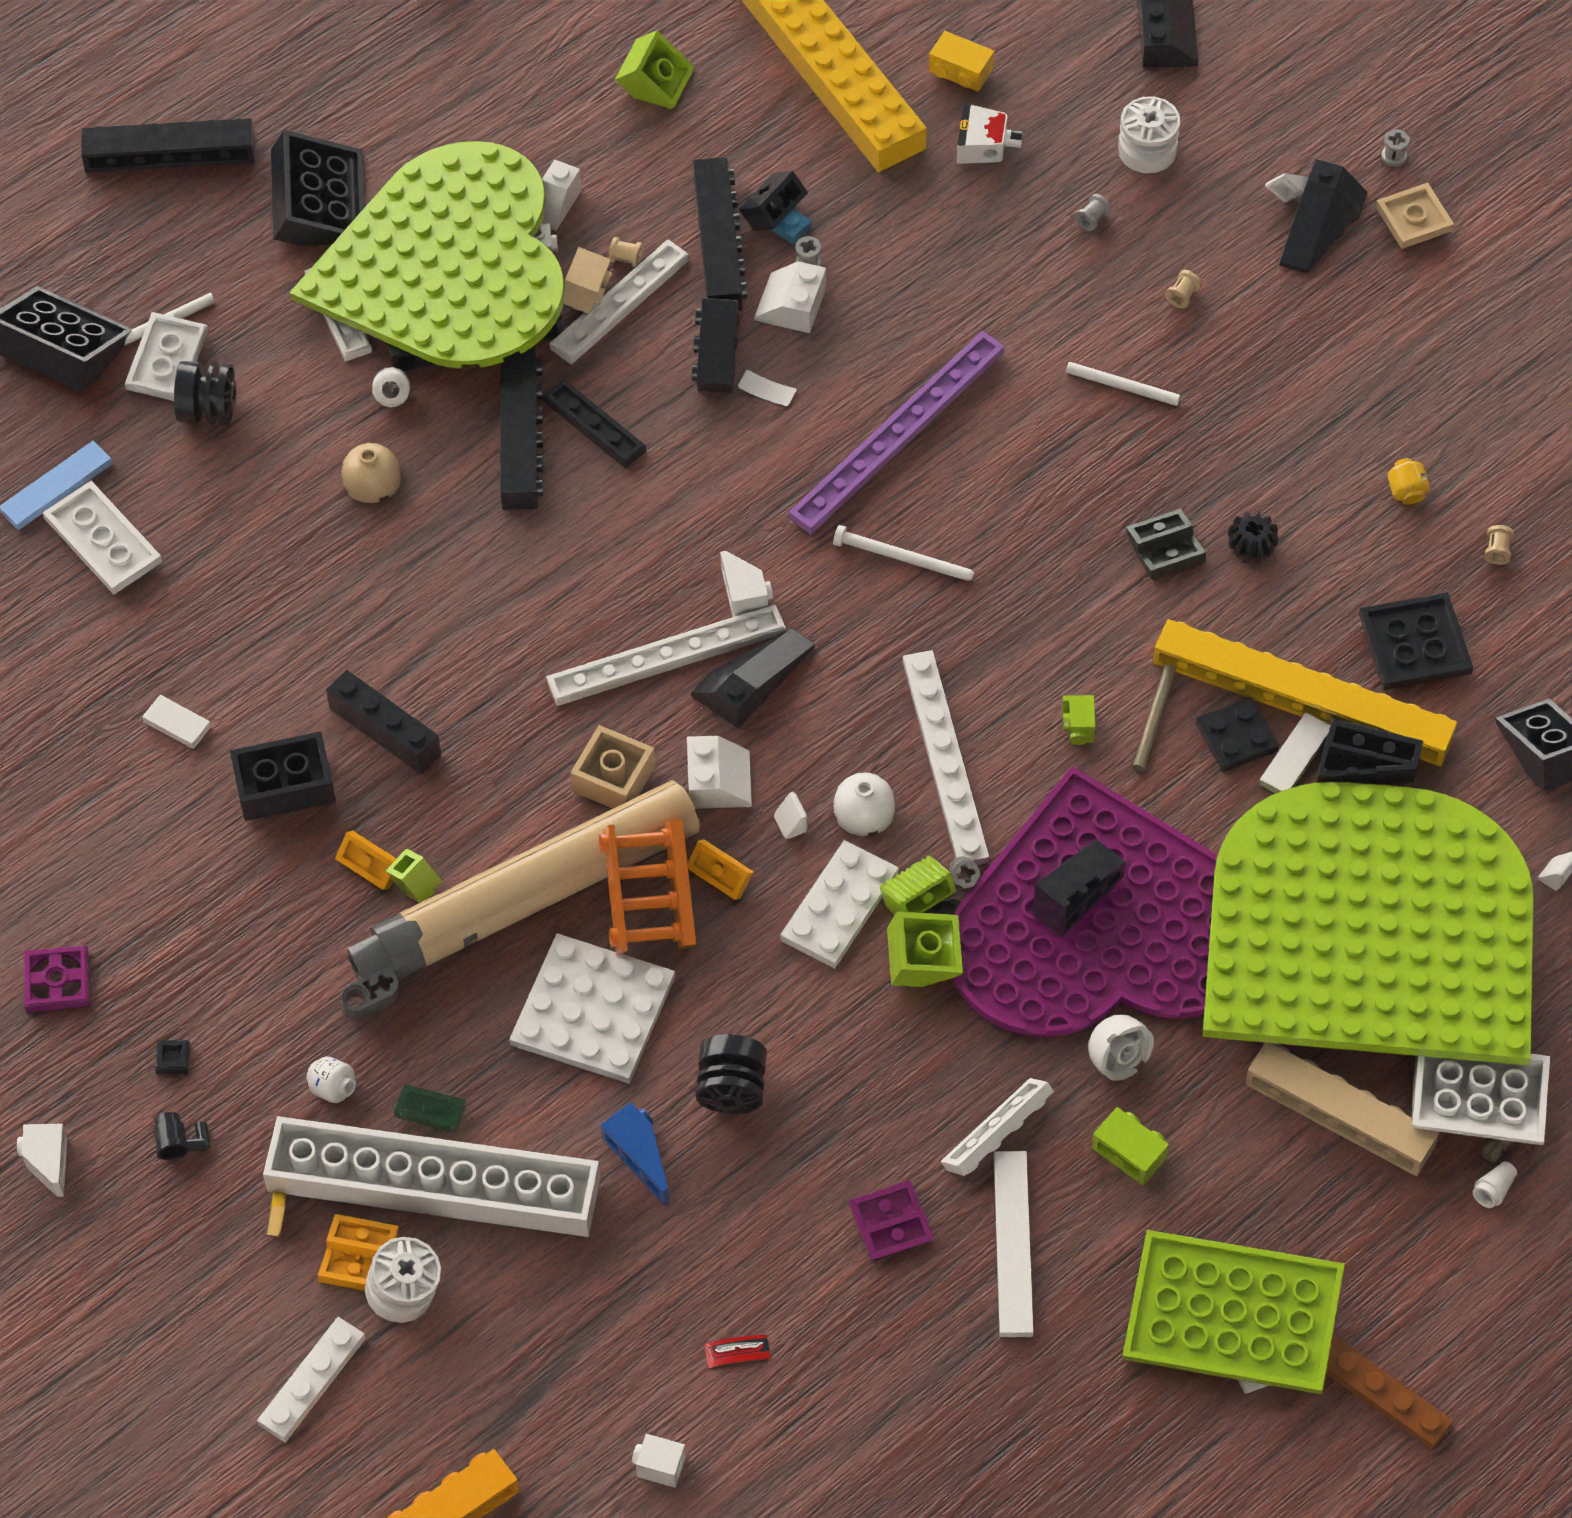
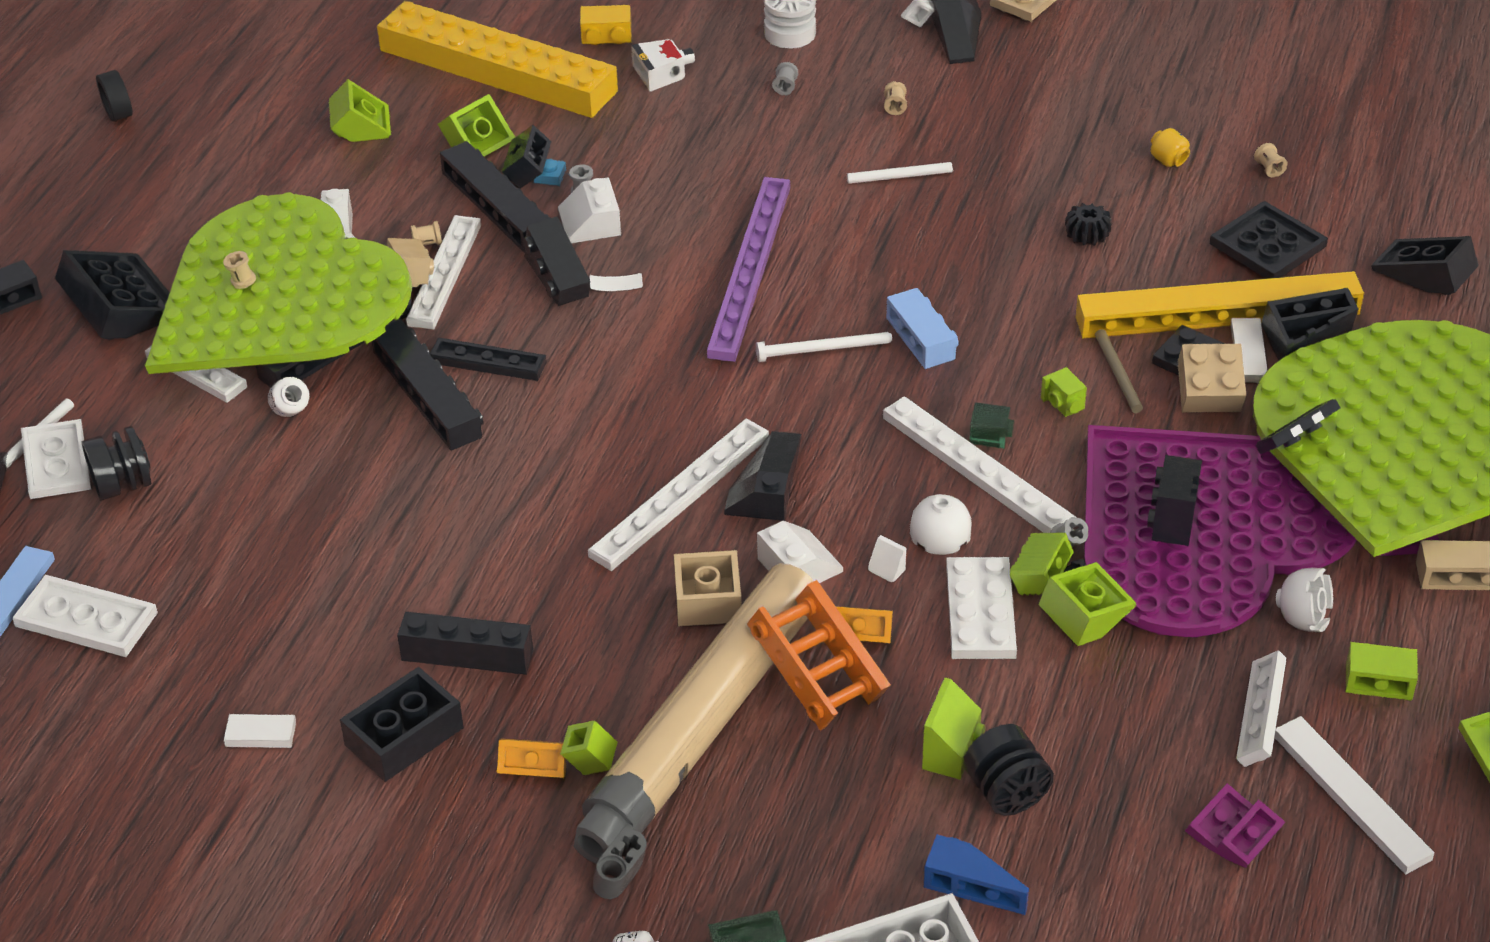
camera: 30 degrees left, 15 degrees down
(370, 473) = (312, 467): tan cylinder -> none
(417, 235) = (239, 269): none -> tan bush
(592, 1008) = (831, 785): white plate -> none
(714, 1009) = (950, 730): none -> lime slope
(744, 585) = (708, 414): white slope -> none
(753, 142) = (479, 125): none -> lime slope
(984, 721) = (991, 425): none -> clear green brick
(1004, 581) = (921, 328): none -> light blue brick
(1166, 544) = (1024, 257): pearl dark grey slope -> none
(1220, 773) = (1211, 378): none -> tan brick
(1251, 870) = (1290, 432): none -> black plate

